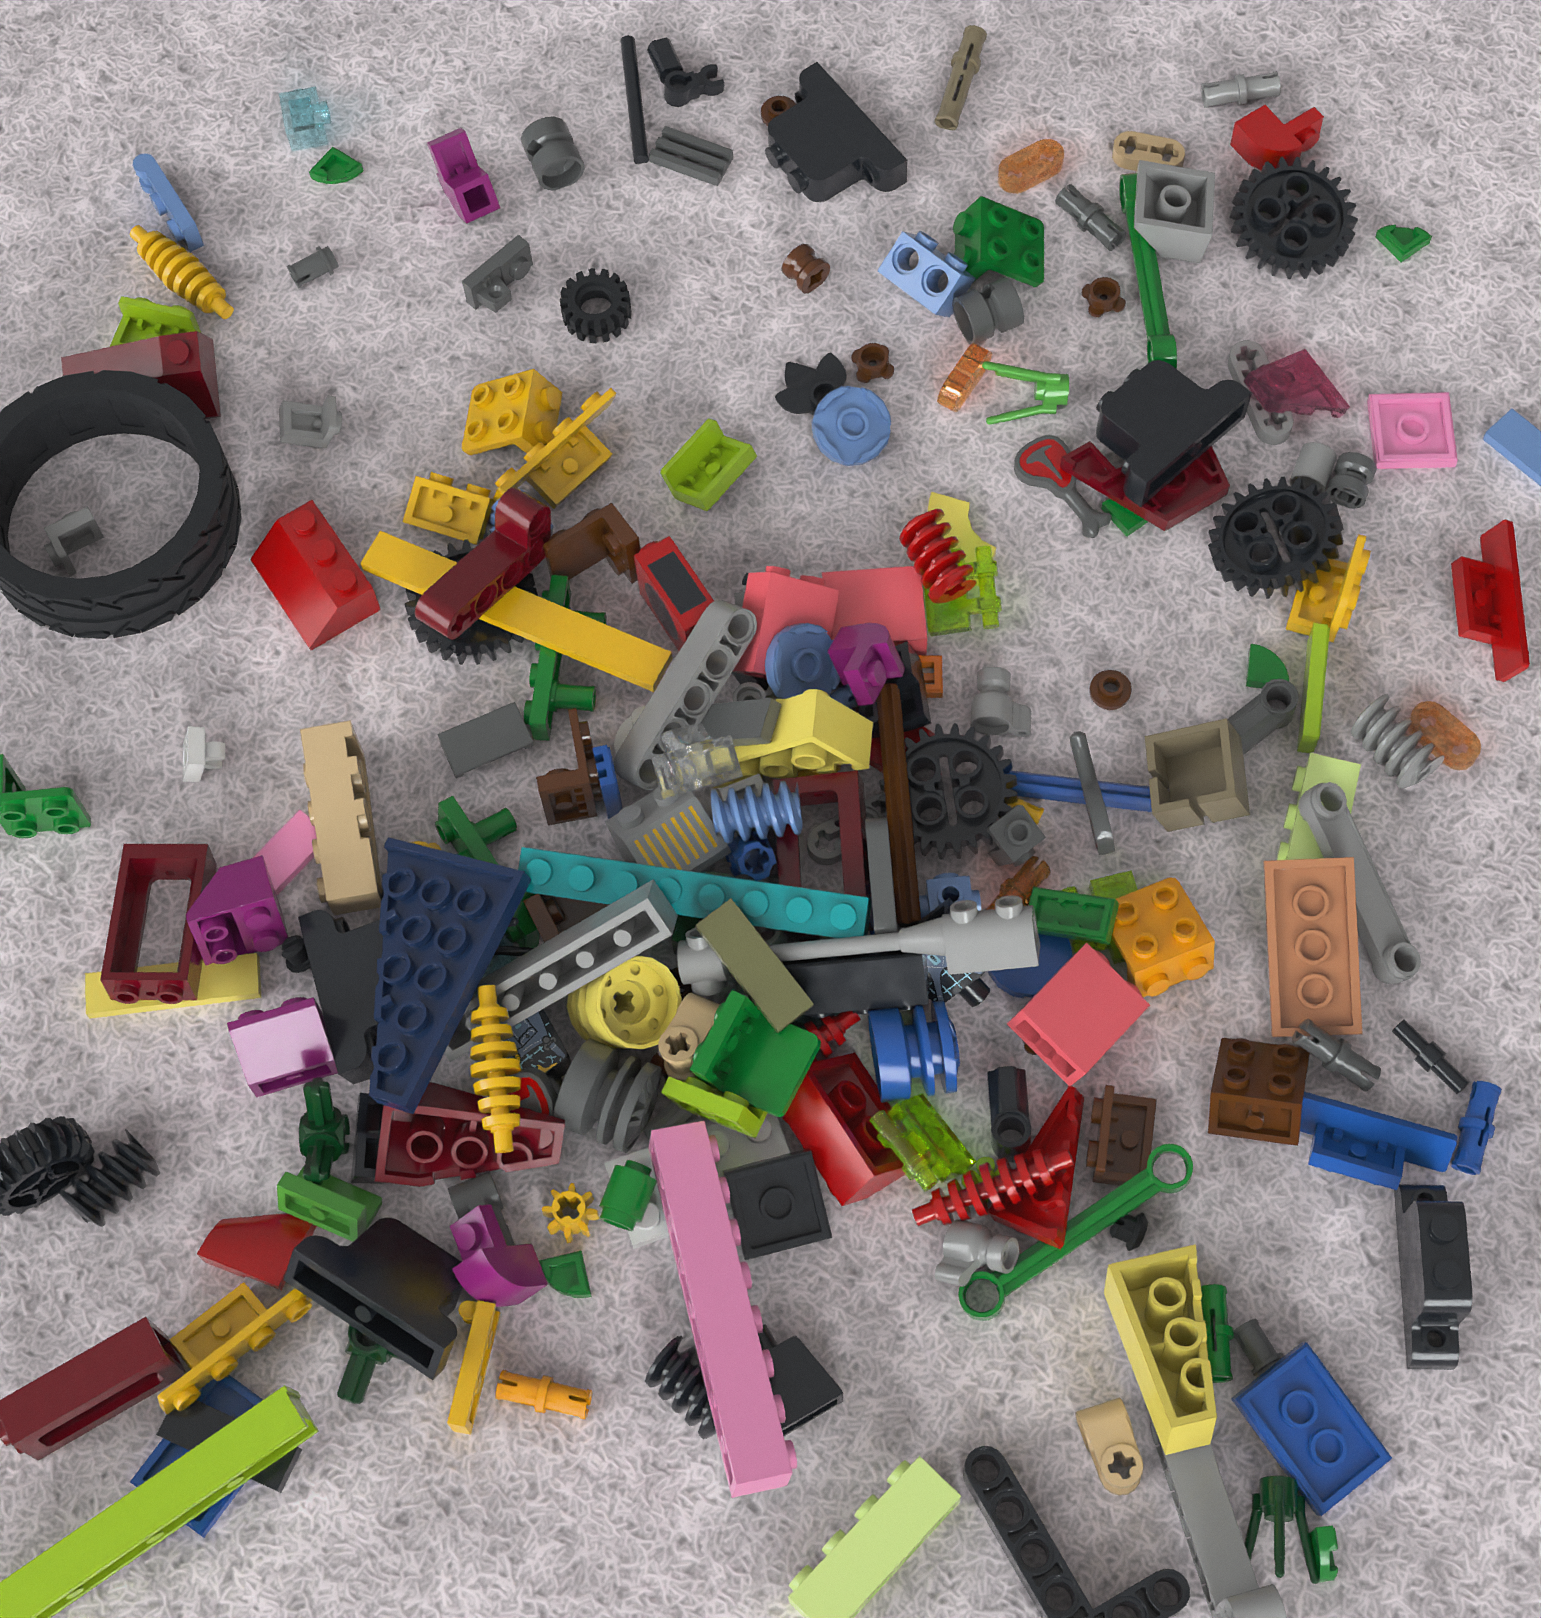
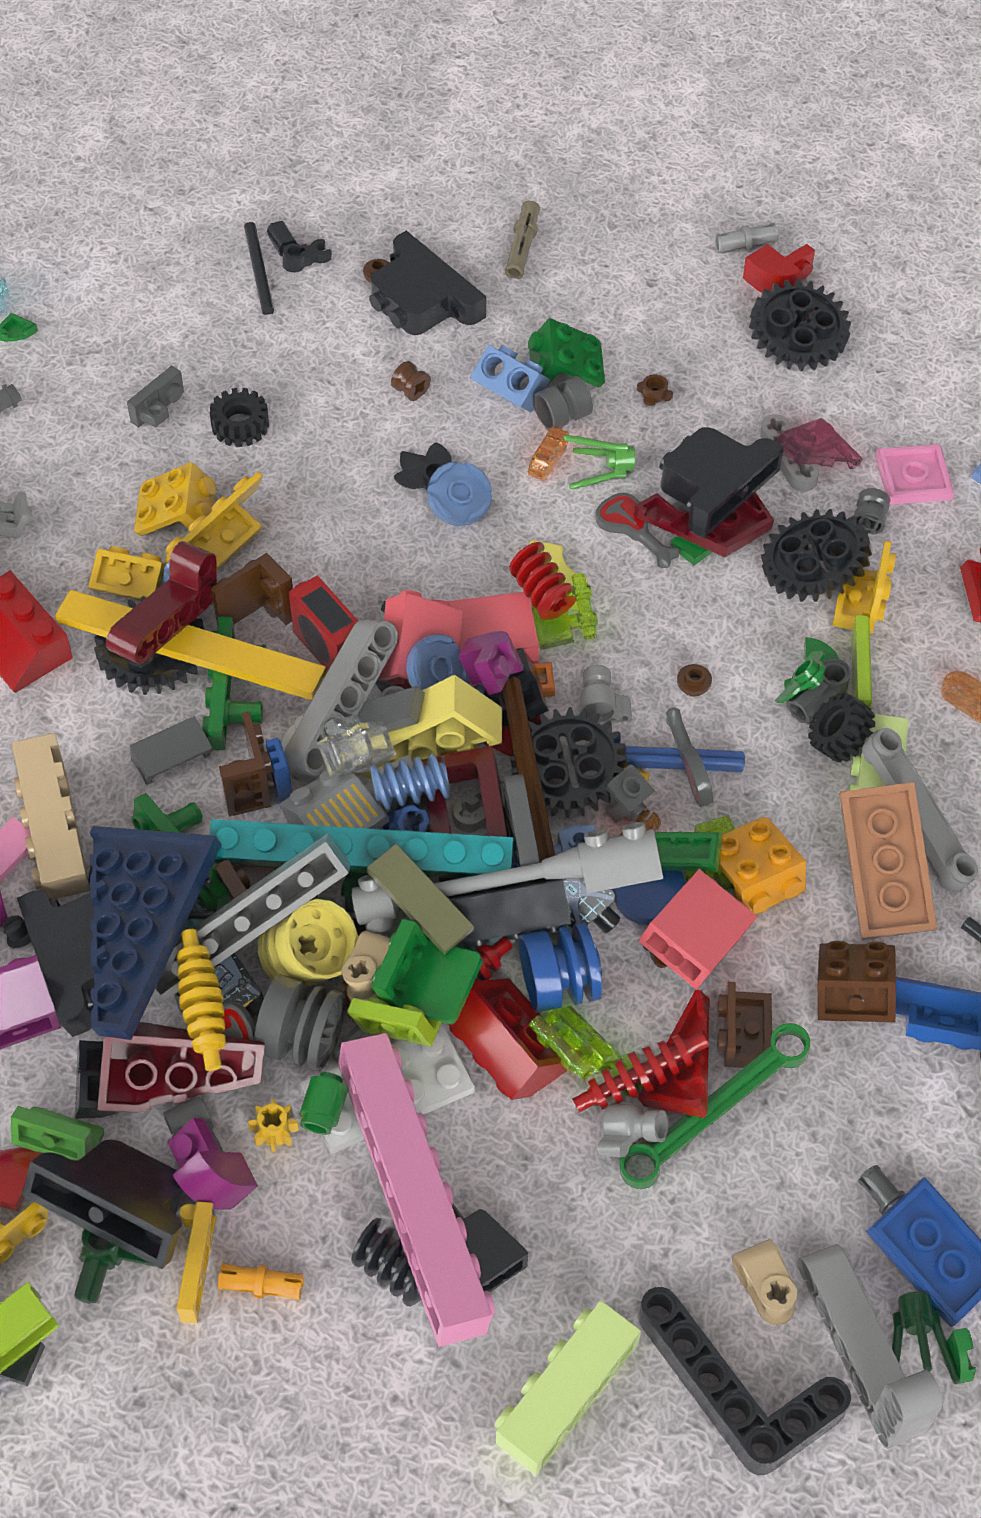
camera: 10 degrees left, 10 degrees down
(321, 1131) = (47, 1071): dark green axle -> none
(461, 177) = (119, 328): magenta brick -> none
(552, 153) = (195, 307): dark grey wheel -> none
(567, 1274) = (274, 1179): green tile -> none
(693, 150) = (311, 303): dark grey tile -> none
(706, 466) = (341, 530): lime bracket -> none
(777, 1204) = (456, 1102): black tile -> none
(872, 353) = (471, 440): reddish brown plate -> none
(1008, 1110) = (646, 1012): black piece -> none
(1032, 168) = (583, 297): clear orange beam -> none
(1090, 217) = (637, 333): dark grey pin -> none
(1130, 1230) = (761, 1102): black piece -> none
(1147, 148) = (678, 286): tan beam -> none
(1160, 343) = (671, 320): green piece -> none
(1165, 1339) = (803, 1184): light yellow wedge -> none
(1174, 209) = (706, 321): light grey slope -> none
(1201, 770) = (778, 734): dark tan piece -> none
(1215, 1304) = (847, 1203): green pin -> none
(1246, 699) = (806, 676): none -> green plate
(1280, 769) = (841, 727): none -> black tyre
(1314, 465) = (840, 498): light grey beam -> none
(1336, 1055) = (918, 947): dark grey pin -> none
(1394, 744) = (933, 705): light grey piece -> none
(1403, 241) = (888, 339): green tile -> none

